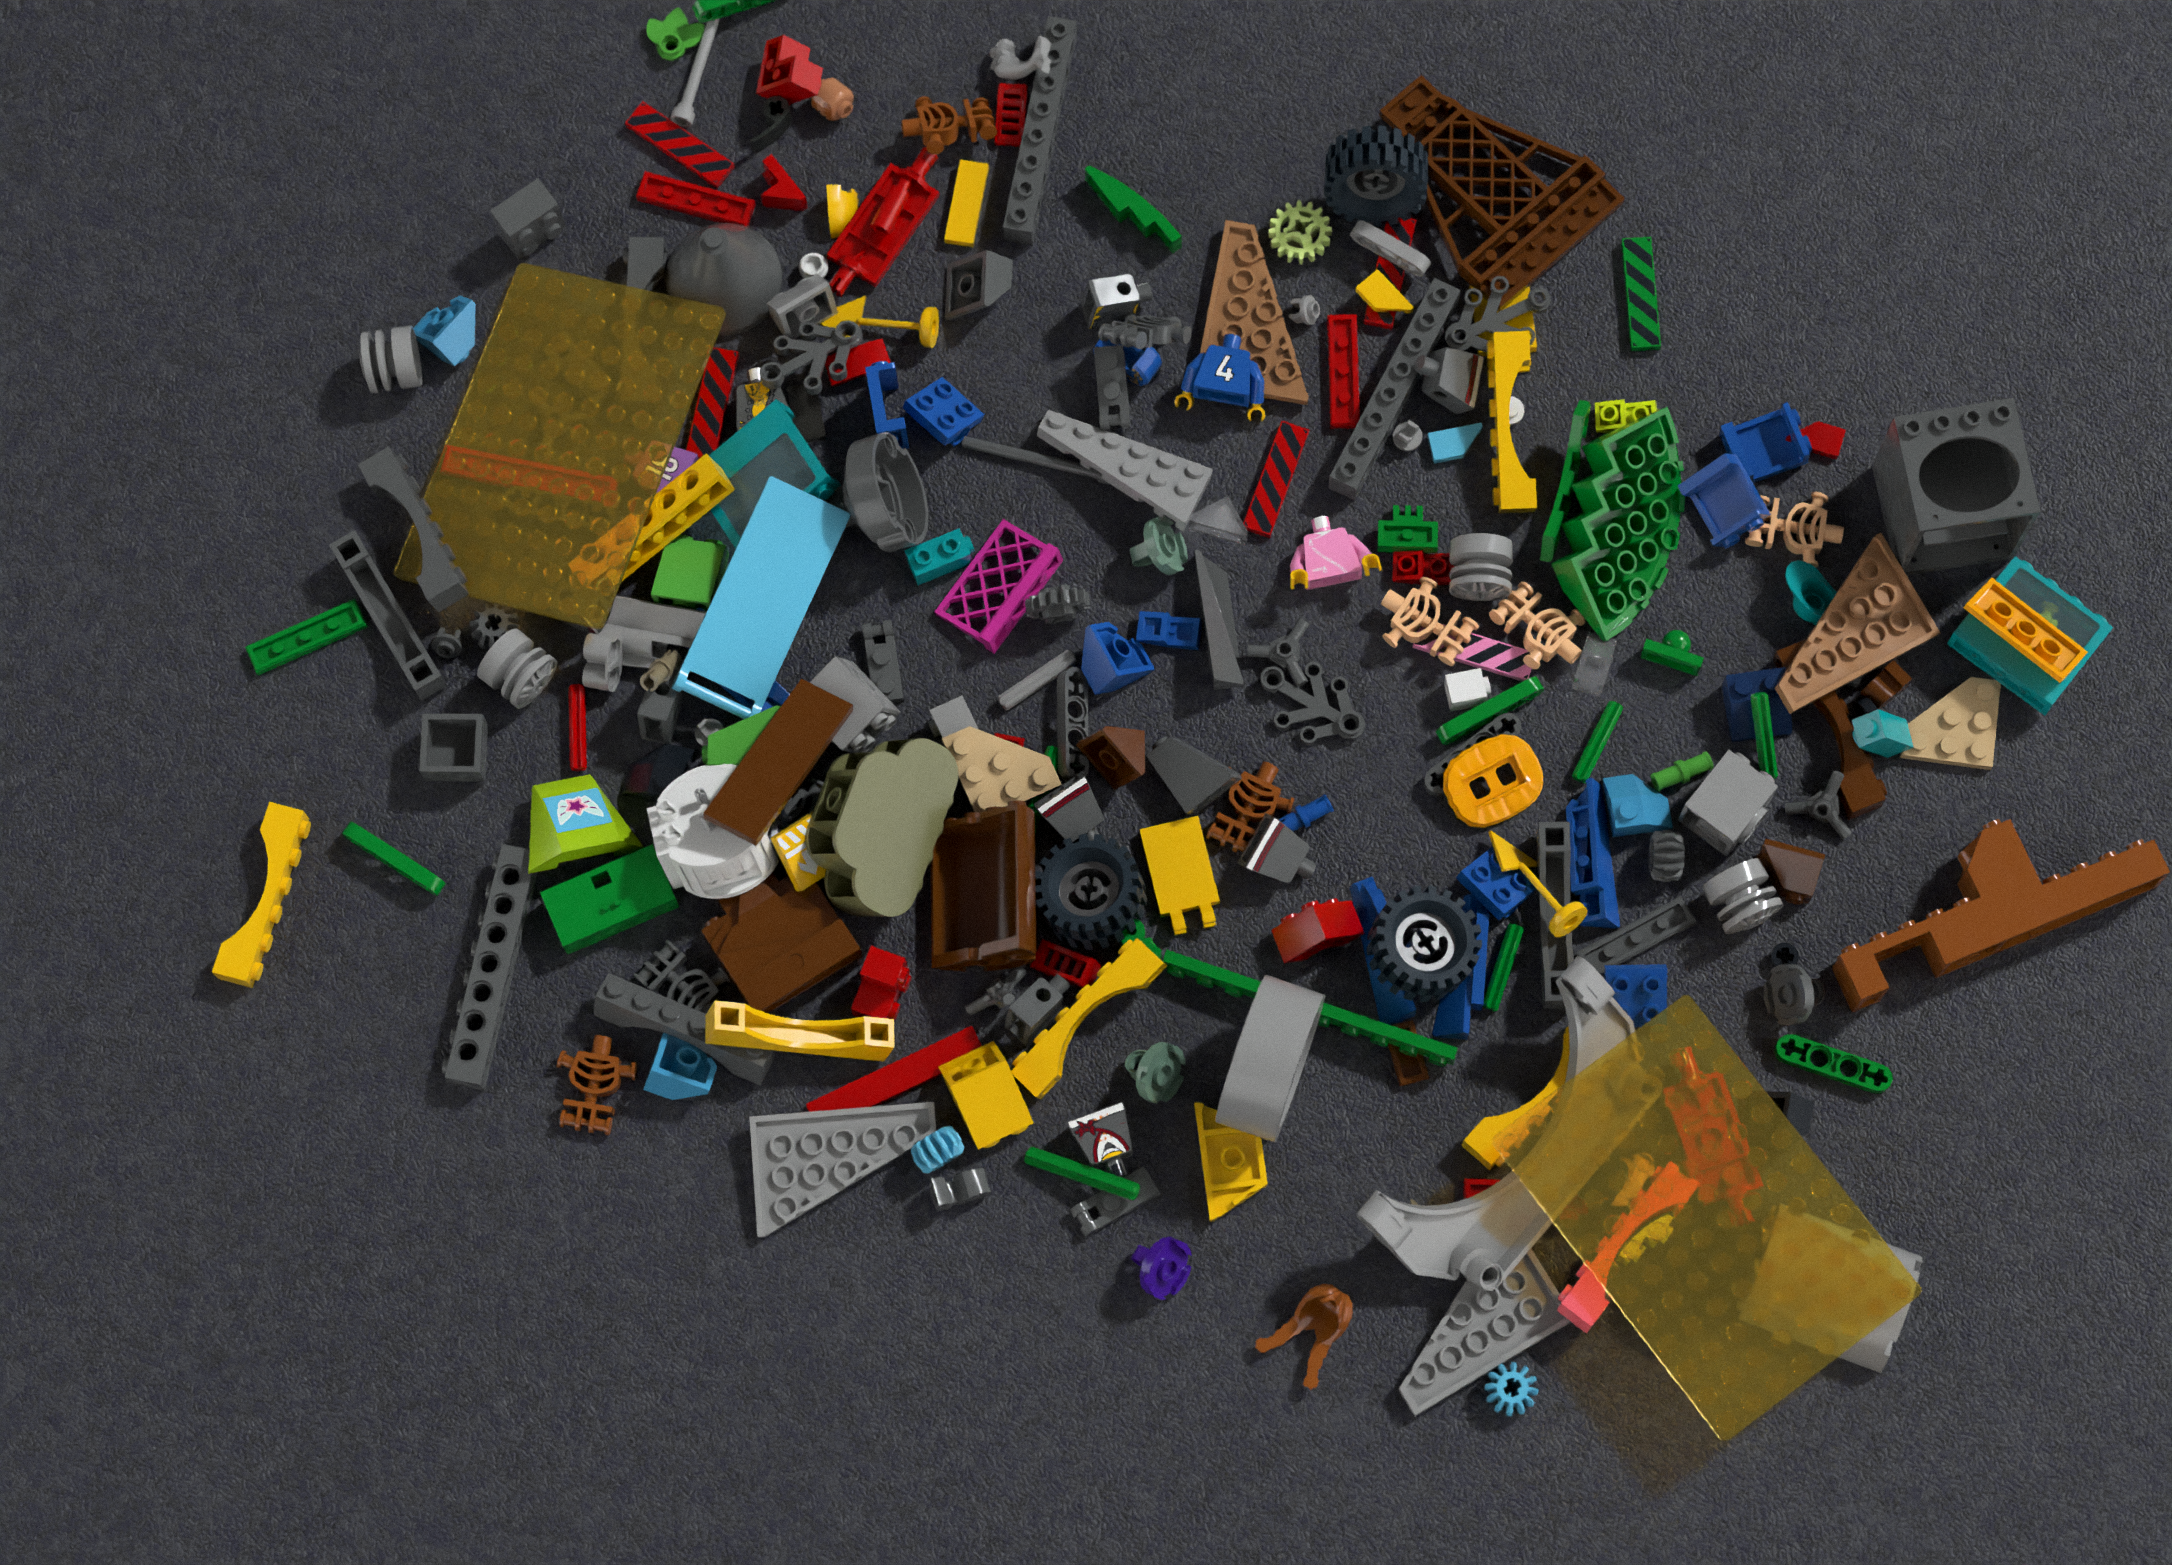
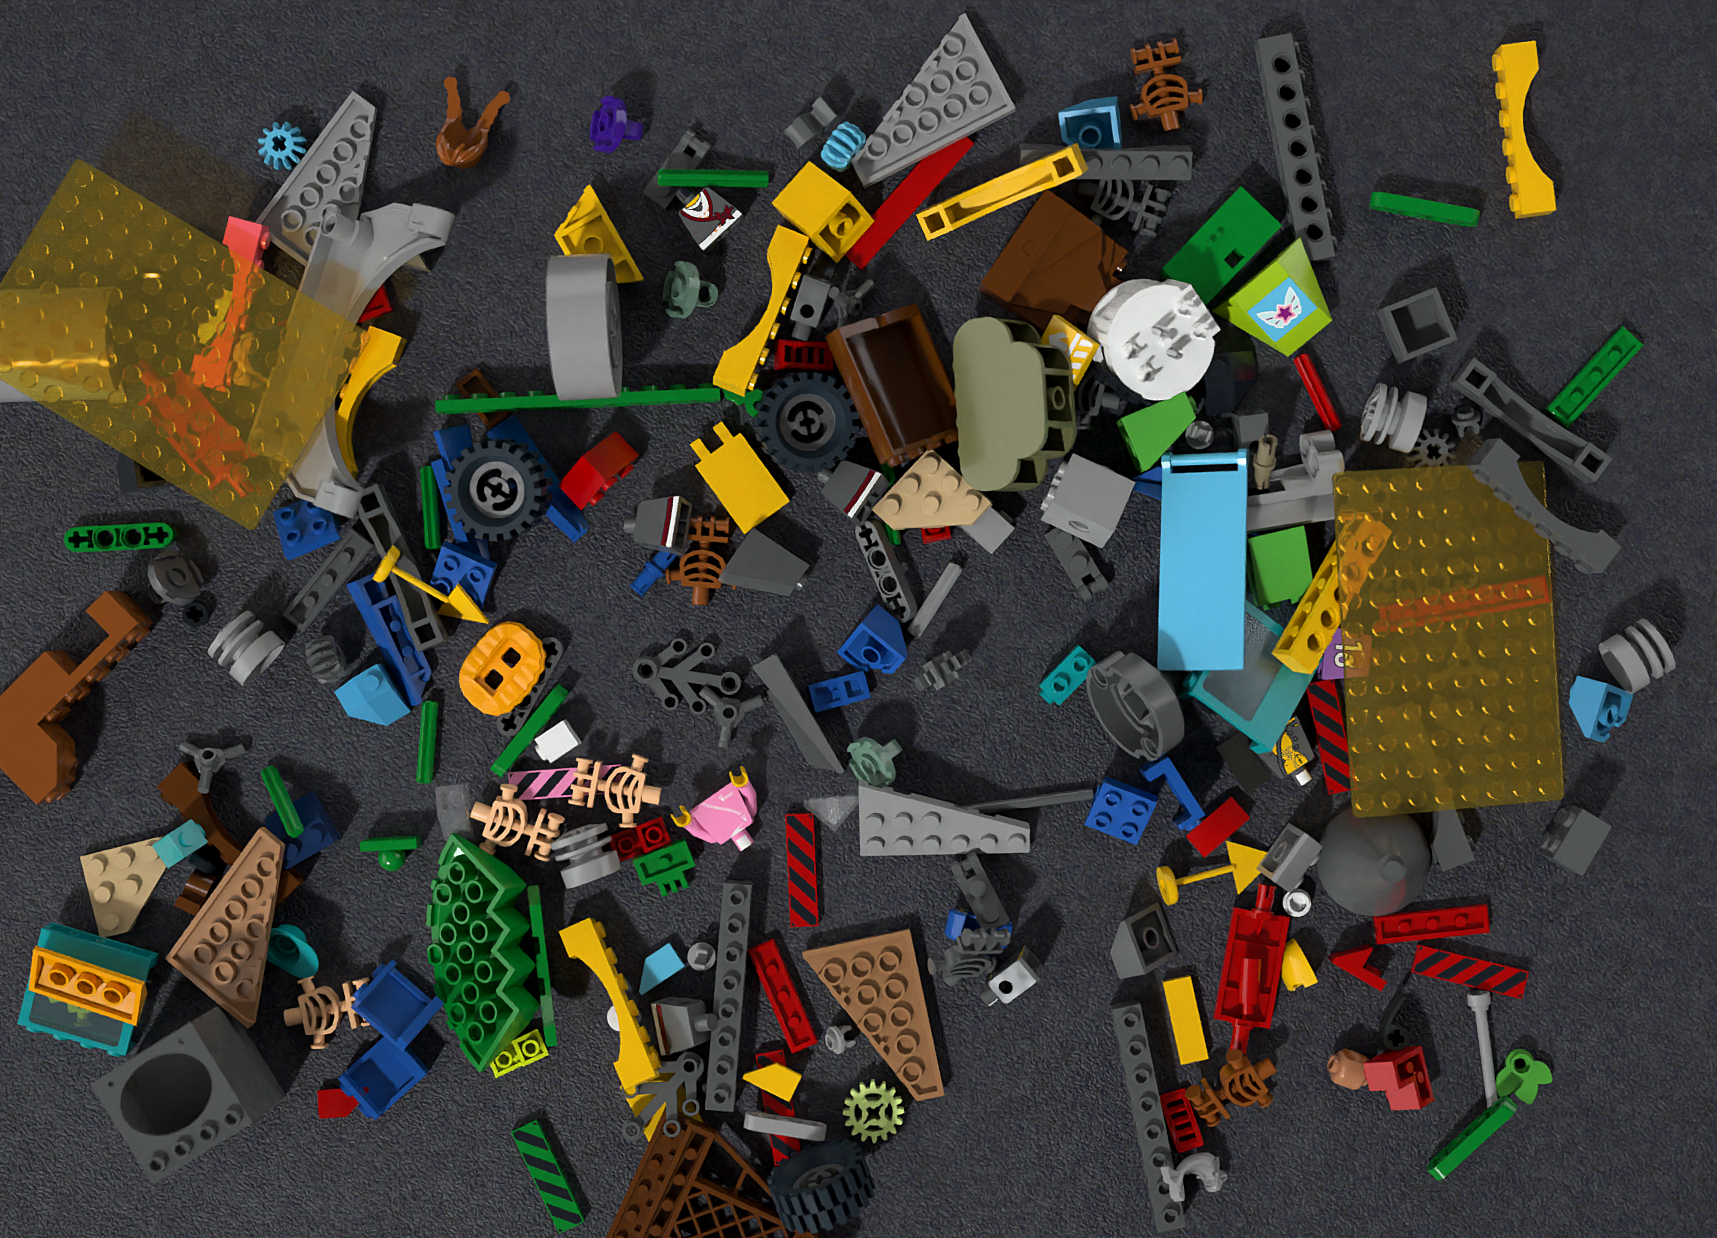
camera: 155 degrees right, 15 degrees up
(778, 762) = (1120, 409): reddish brown tile -> none
(813, 353) = (1258, 815): dark grey plant -> none
(883, 980) = (952, 267): red brick -> none
(1013, 607) = (980, 671): dark pink fence -> none
(1116, 753) = (832, 553): reddish brown slope -> none
(1127, 203) = (1042, 1076): green slope -> none
(1224, 376) = (882, 942): blue torso -> none
(1681, 771) = (344, 744): bright green pin -> none
(1729, 803) = (288, 728): light grey brick -> none
(1791, 869) = (213, 687): reddish brown slope -> none

